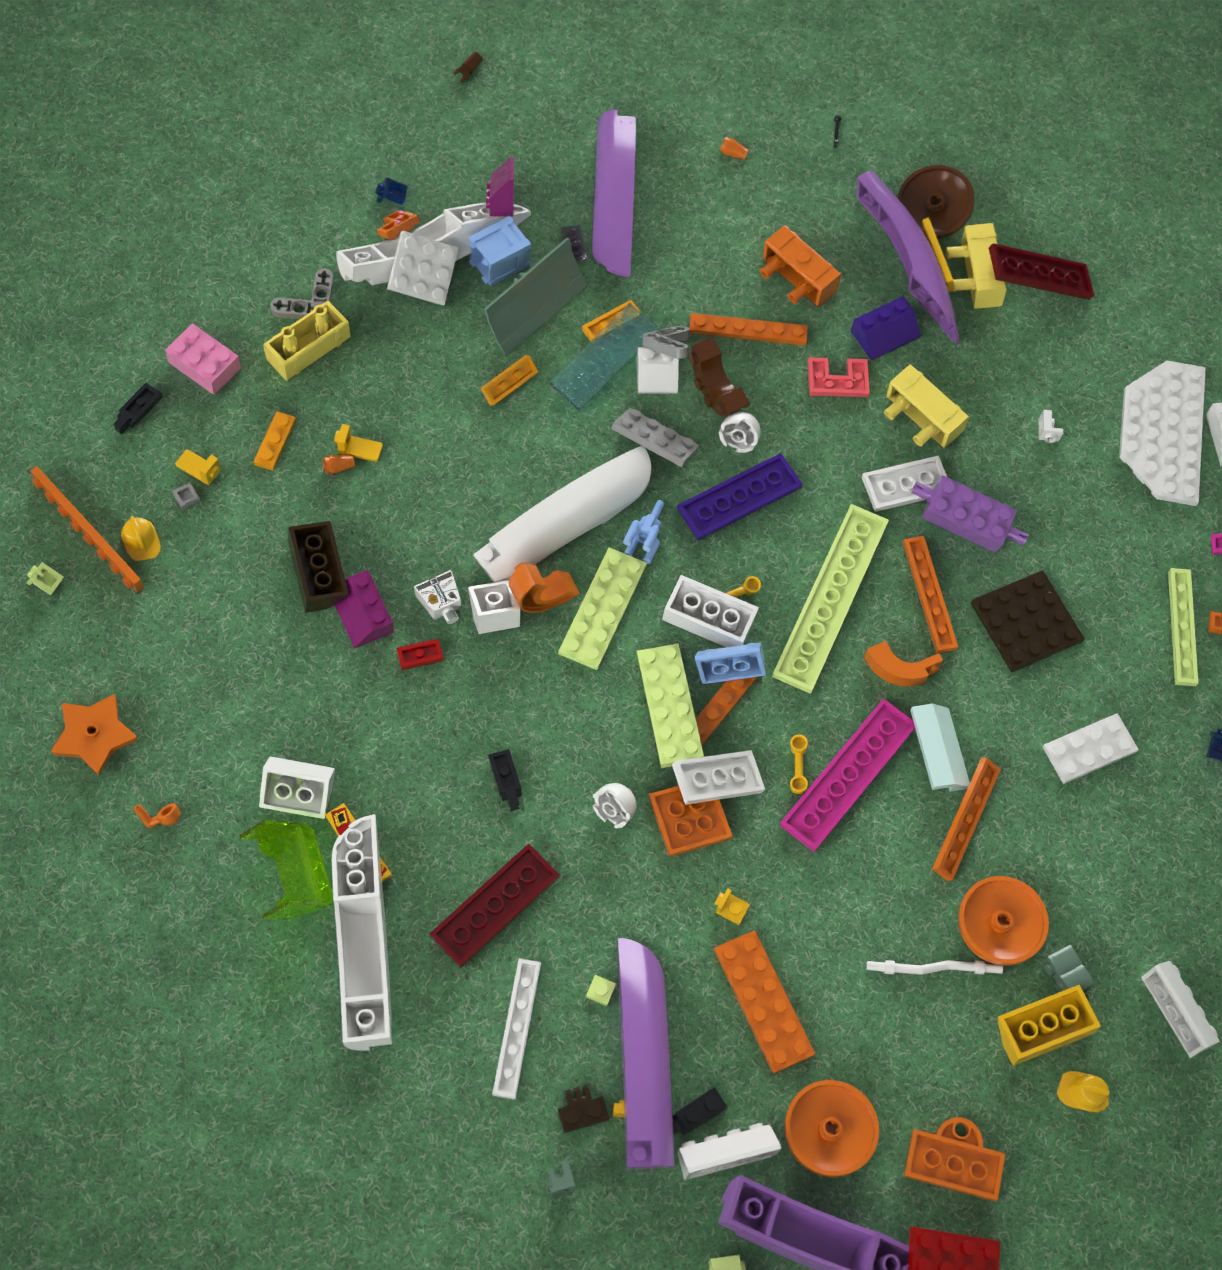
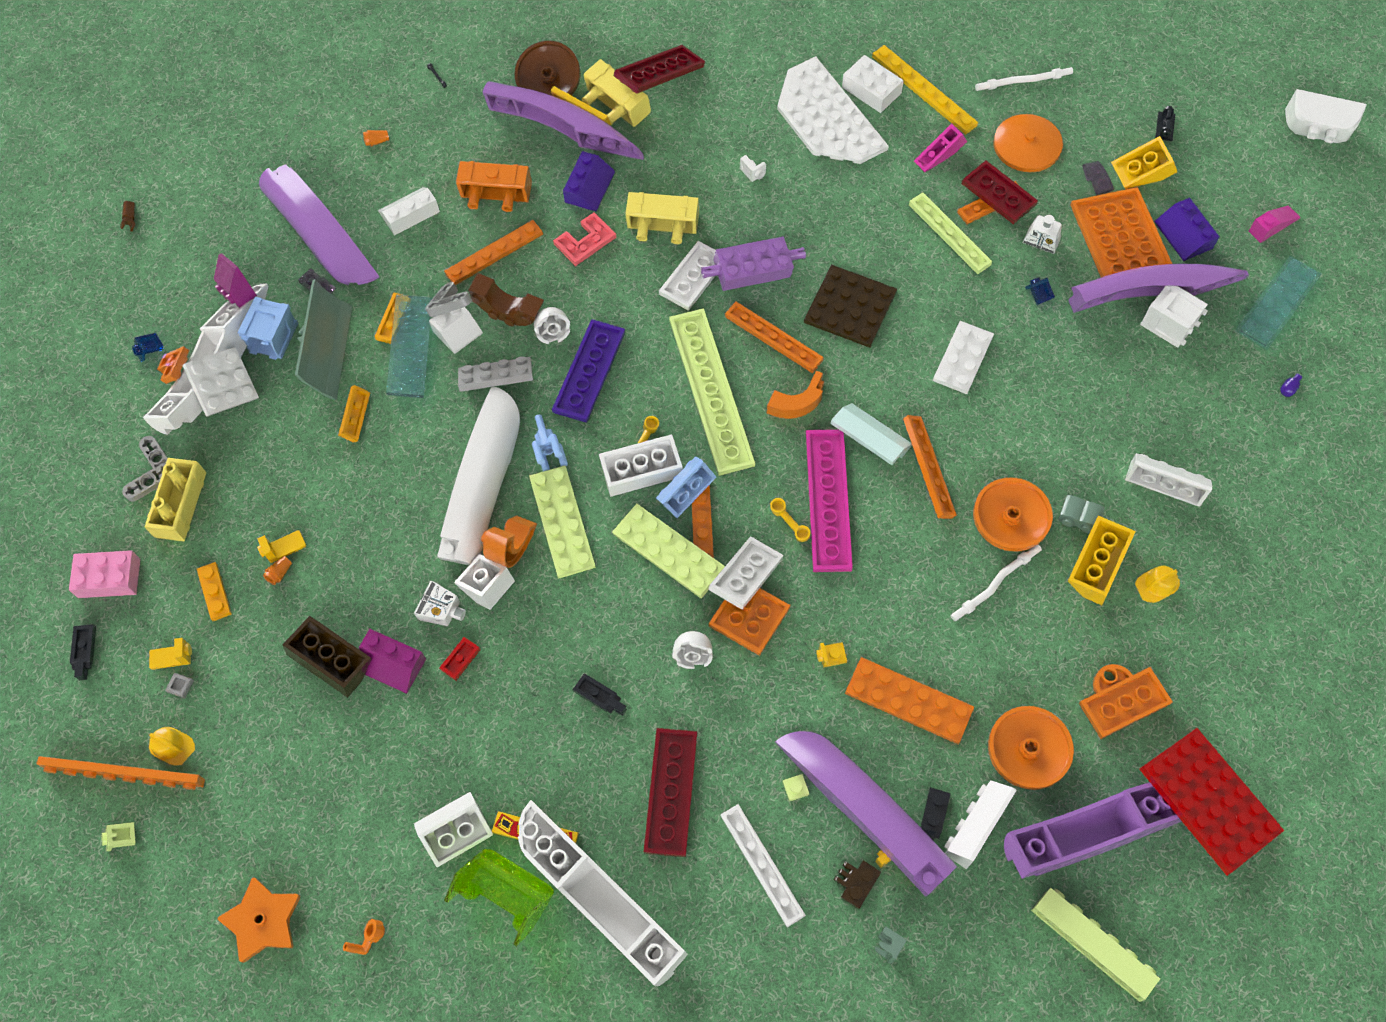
camera: 30 degrees left, 0 degrees up
(707, 237) = (409, 210): none -> white slope

